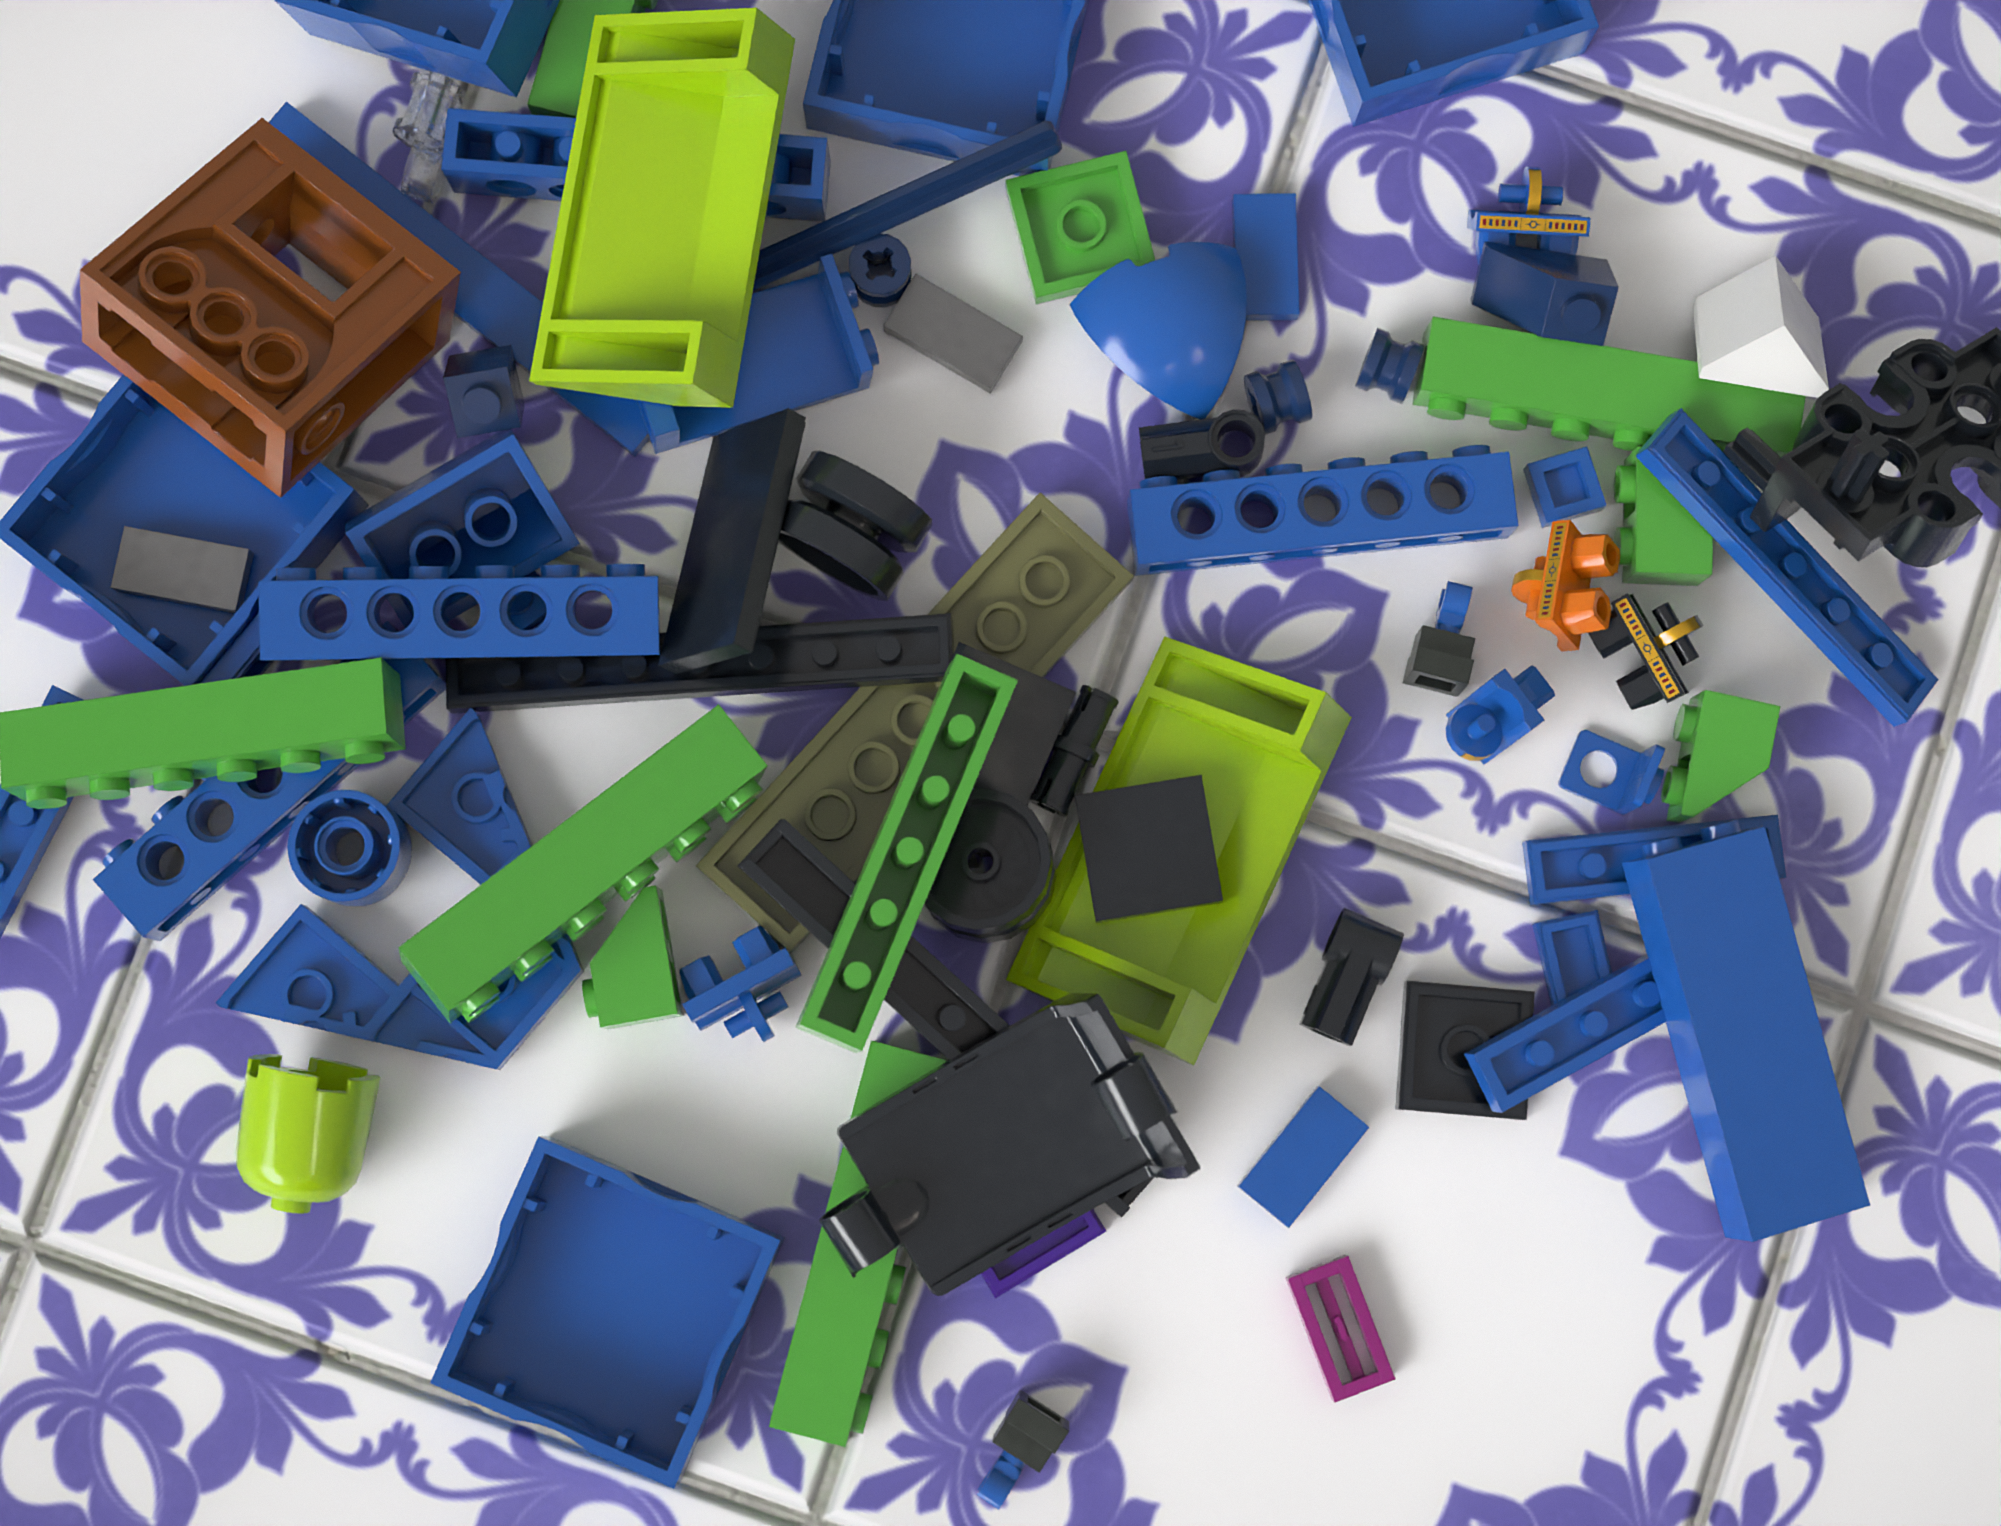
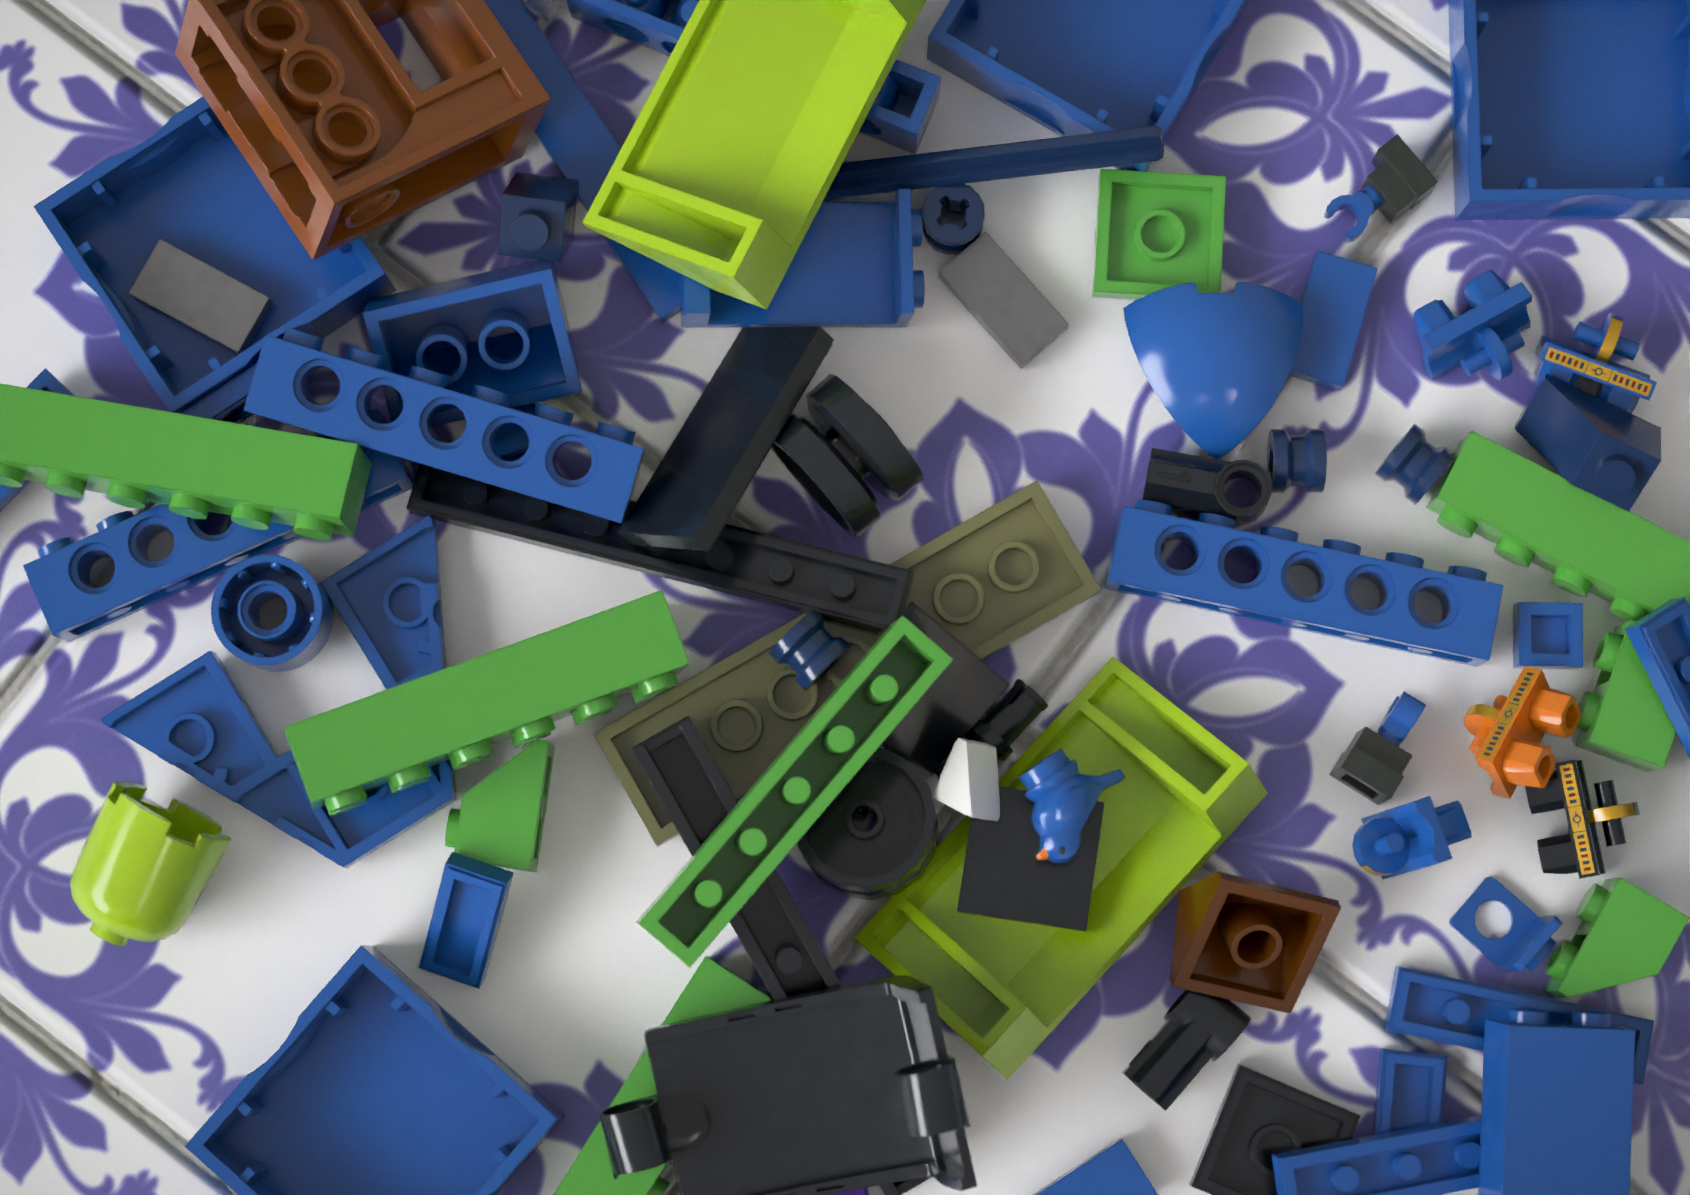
camera: 25 degrees right, 0 degrees up
(630, 1081) = (465, 920): none -> blue tile
(716, 999) = (570, 867): blue hips -> none
(877, 719) = (809, 650): none -> dark blue wheel
(1069, 792) = (971, 780): none -> white slope
(1163, 786) = (1063, 803): none -> blue animal
(1285, 114) = (1392, 188): none -> pearl dark grey piece
(1378, 859) = (1248, 940): none -> reddish brown slope
(1410, 228) = (1479, 336): none -> blue hips

